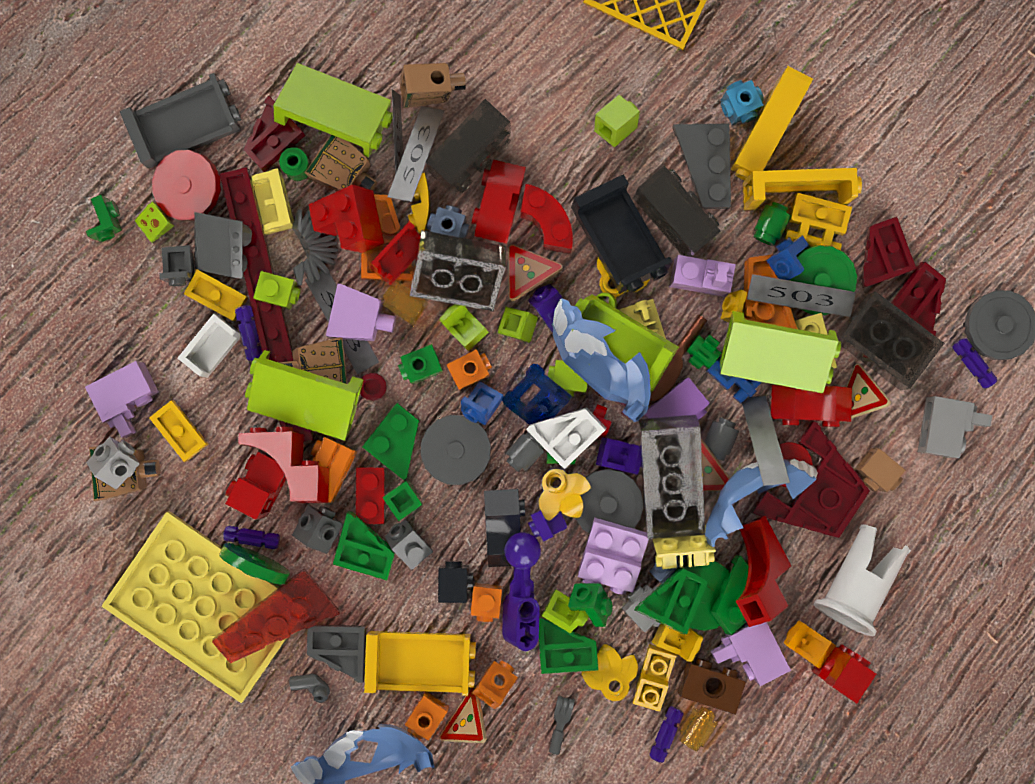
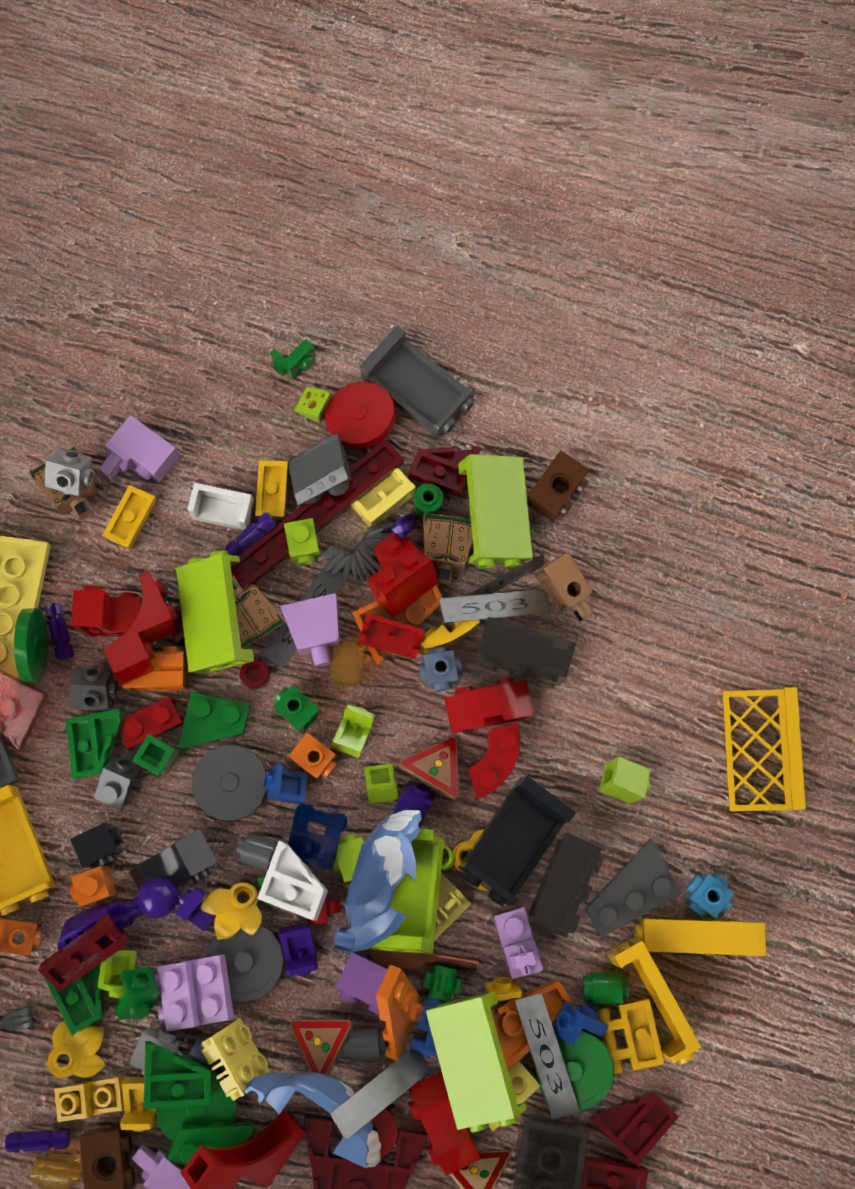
camera: 60 degrees right, 10 degrees down
(177, 265) = (283, 442): dark grey bracket -> none
(307, 194) = (404, 525): none -> dark purple axle
(333, 30) = (563, 471): none -> reddish brown brick
(458, 270) = (401, 698): clear smoke brick -> none
(539, 630) = (83, 953): none -> dark red plate
(672, 476) = (298, 1012): clear smoke brick -> none
(709, 394) = (399, 1007): none -> orange wing

